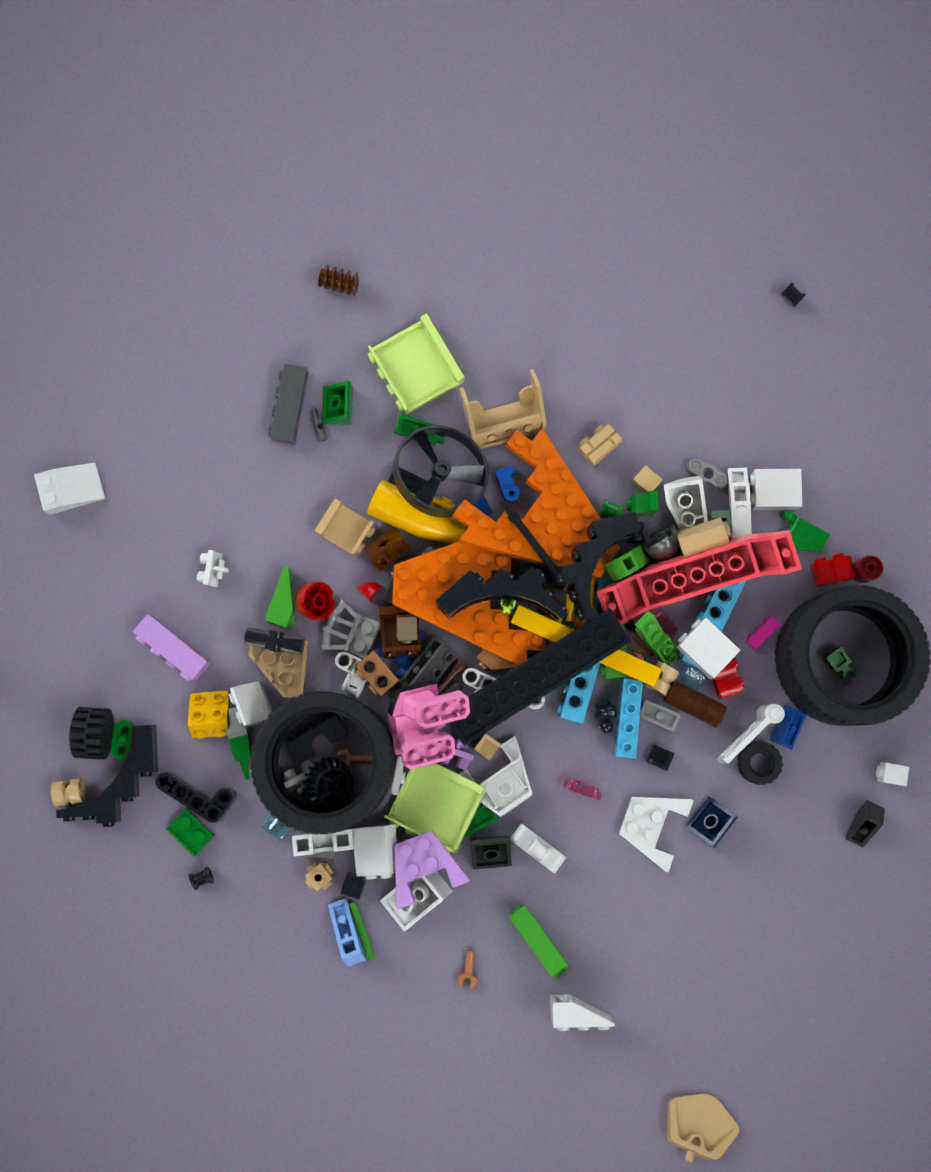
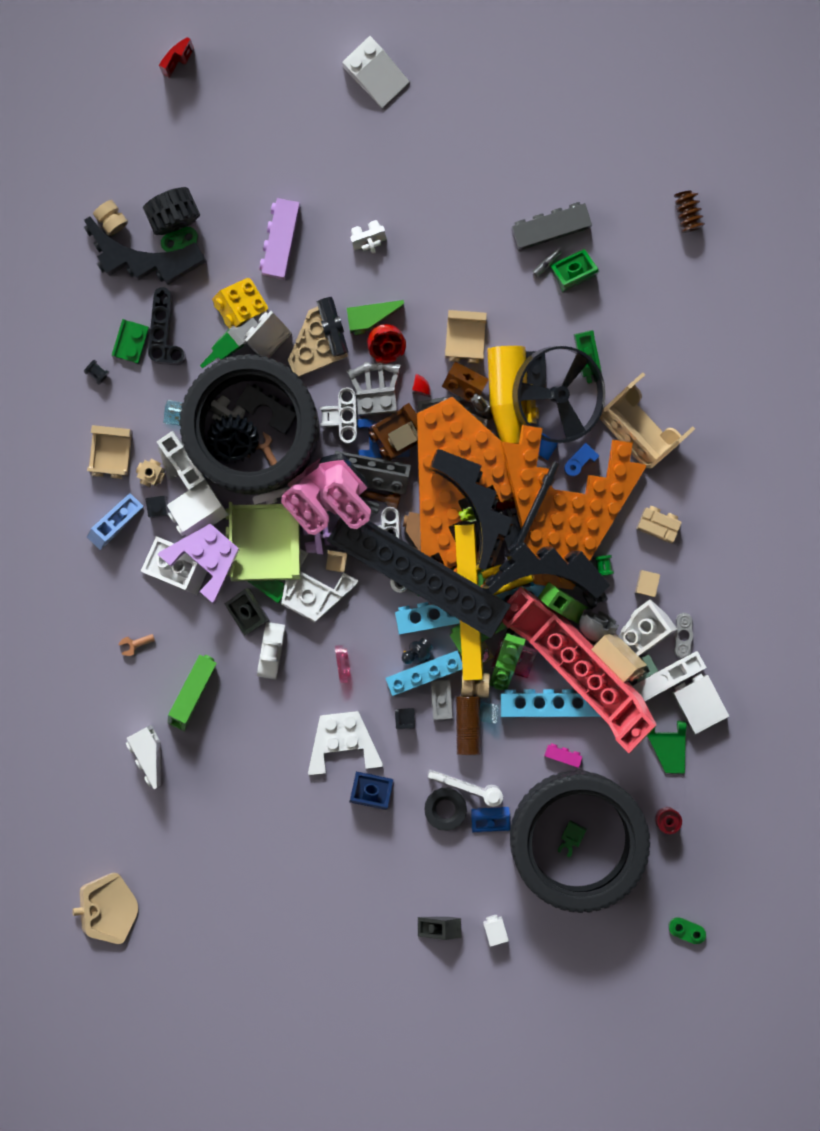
camera: 70 degrees right, 5 degrees up
(280, 903) = (110, 451): none -> tan panel
(362, 931) = (122, 534): bright green bar -> none
(381, 670) = (355, 433): medium nougat brick -> none
(416, 365) = (646, 321): yellowish green panel -> none
(416, 544) = (482, 406): none -> dark grey axle
(643, 504) = (623, 589): green arch -> none
(707, 647) = (522, 710): white brick -> none
(728, 681) = (506, 740): red brick -> none
(833, 570) = (651, 790): red brick -> none

